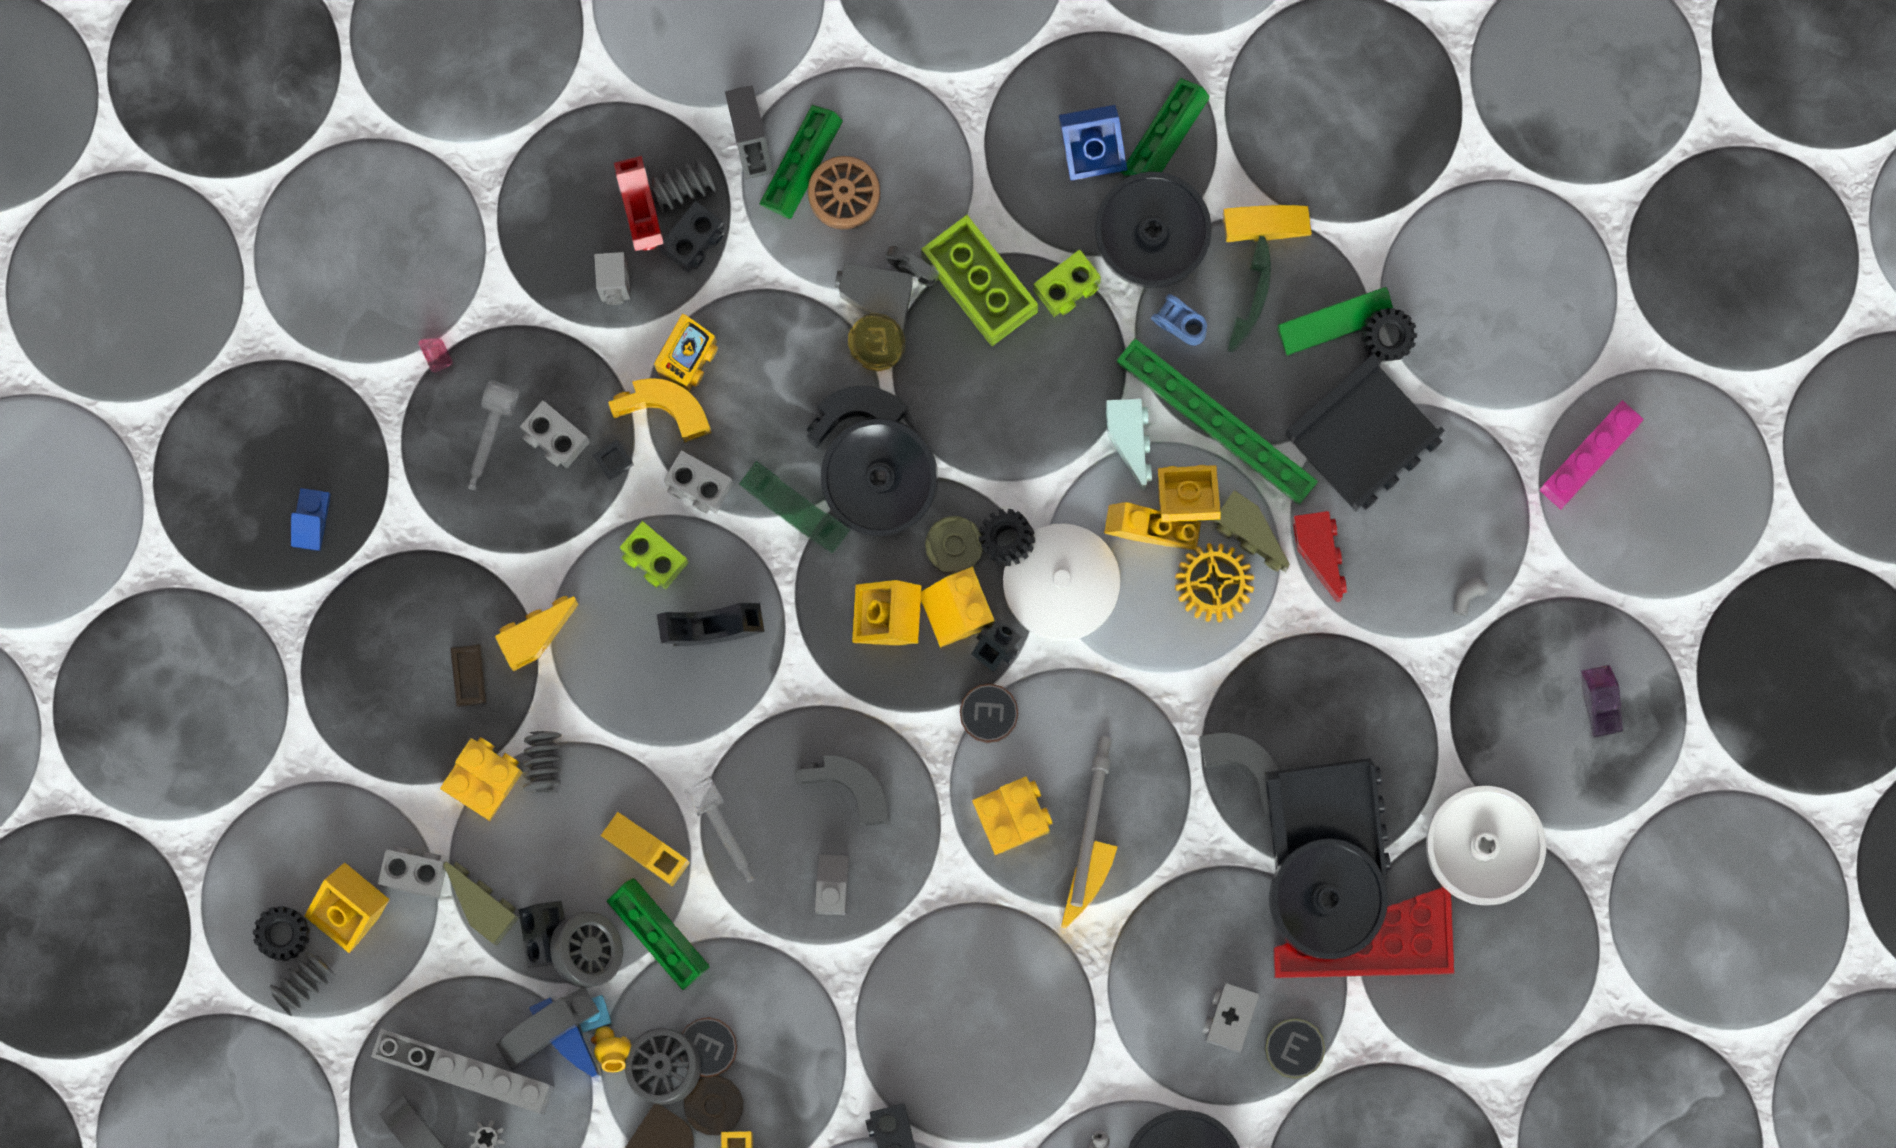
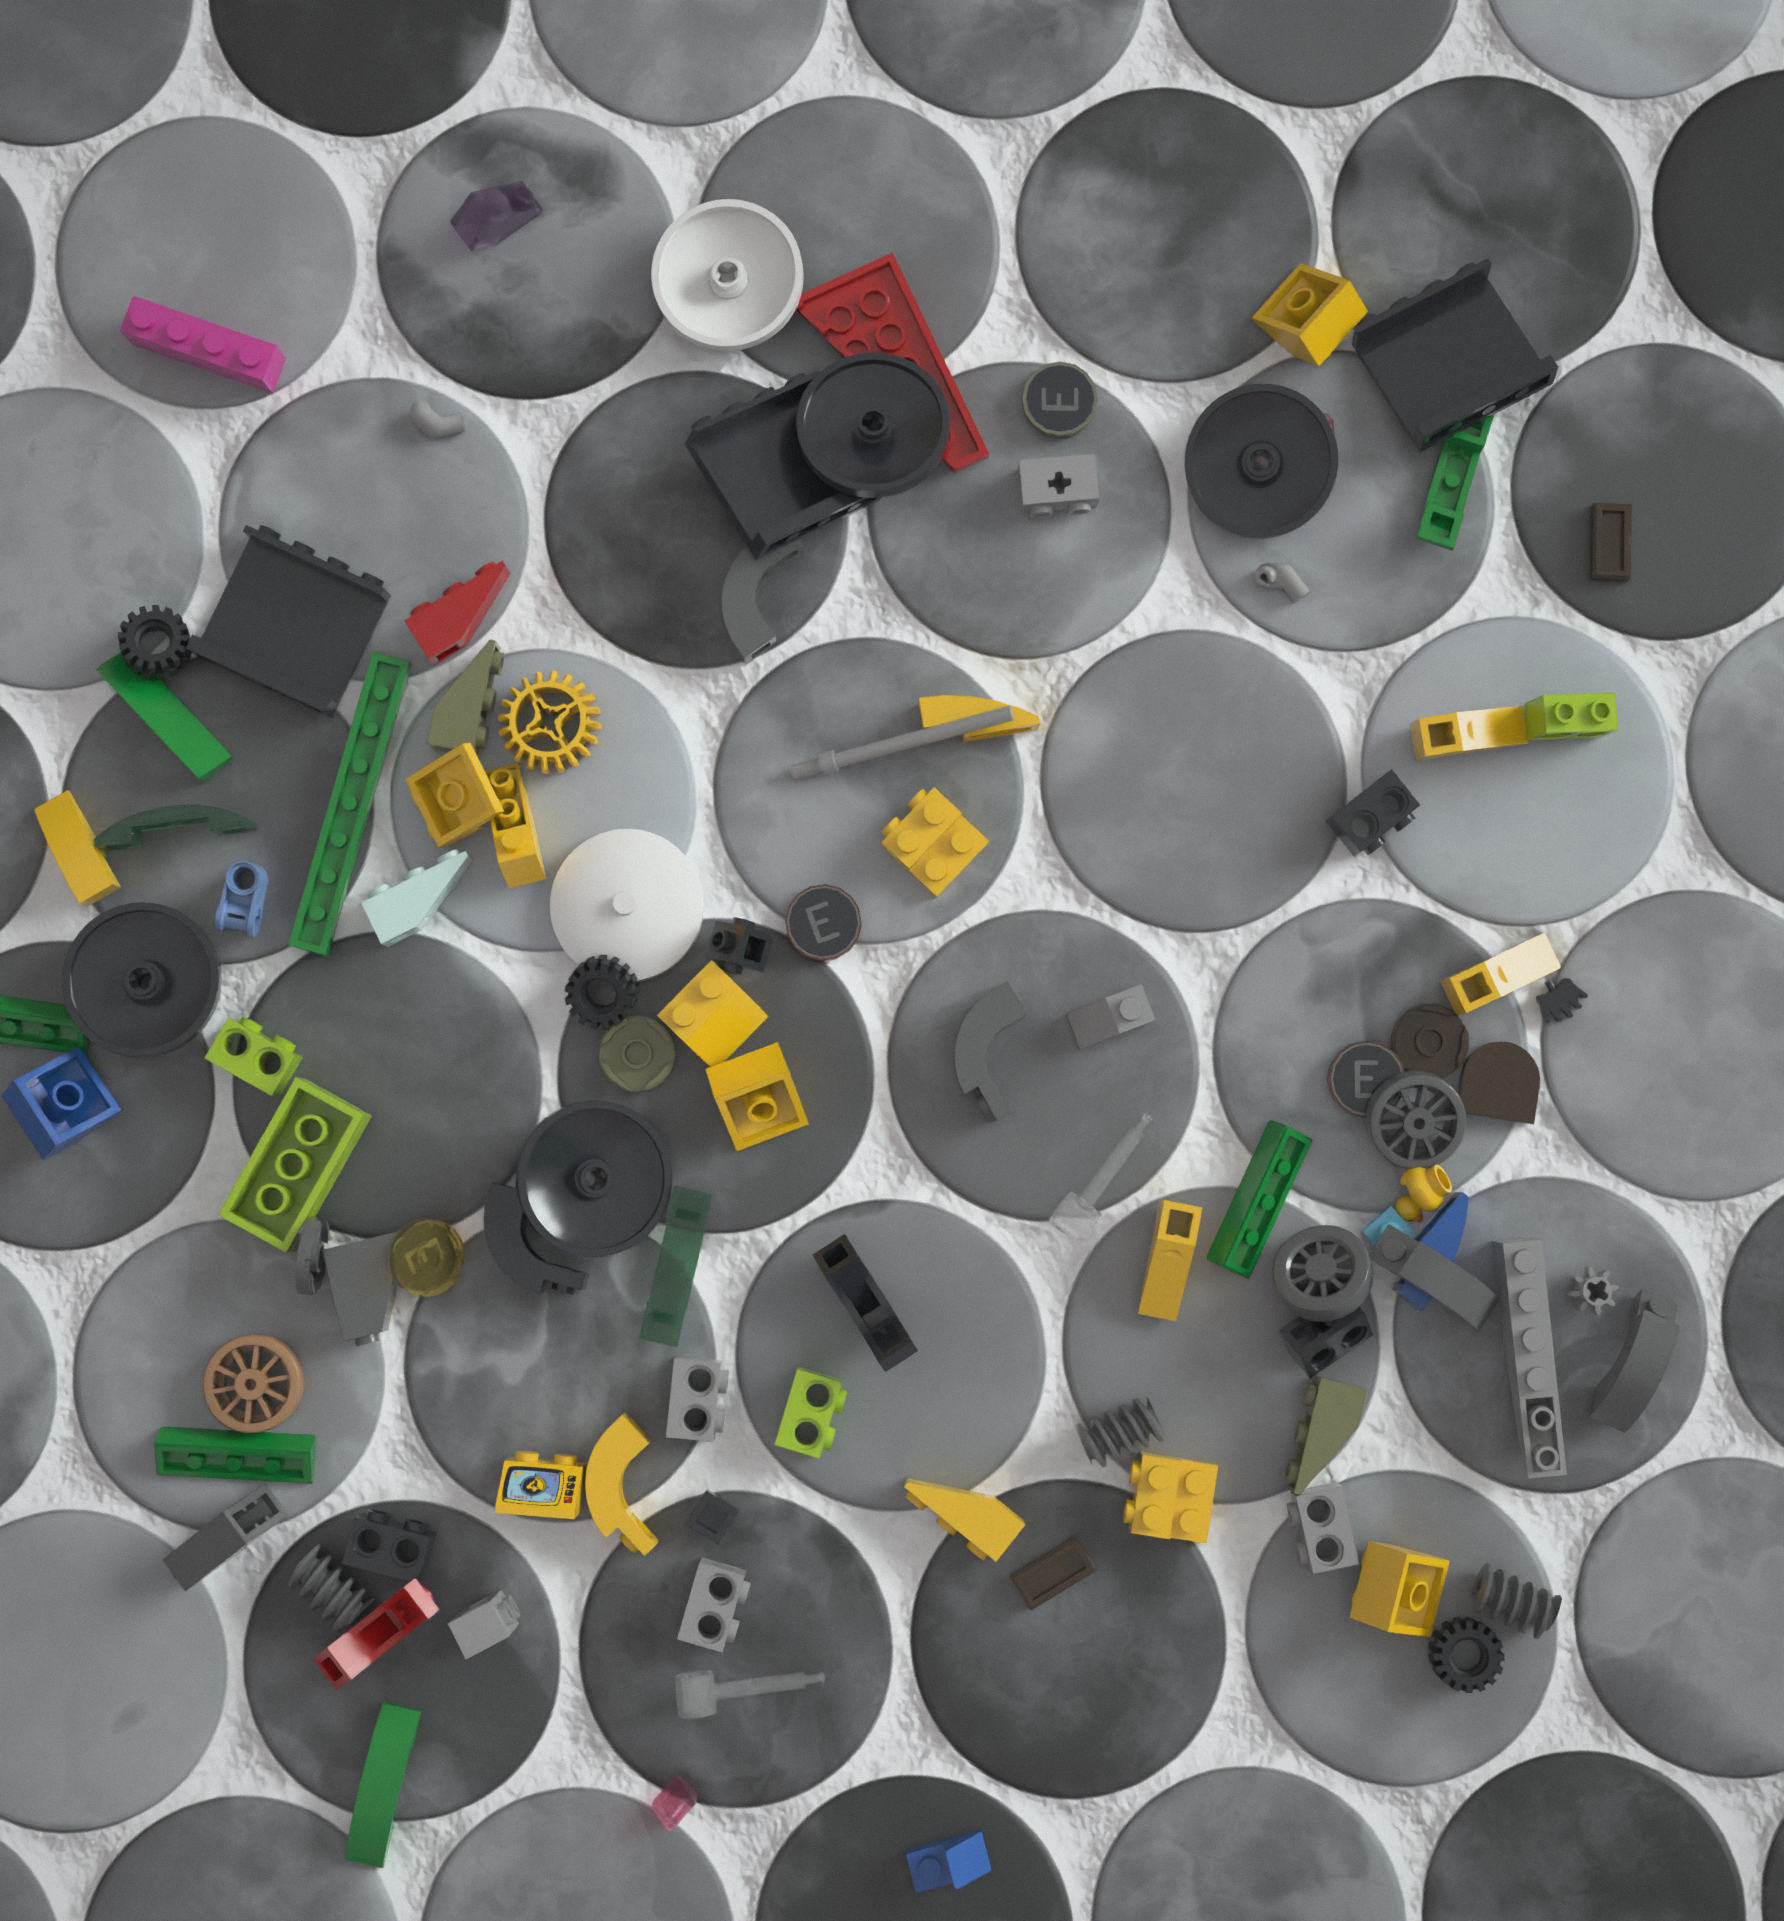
camera: 120 degrees left, 5 degrees up
(538, 167) = (381, 1784): none -> green slope

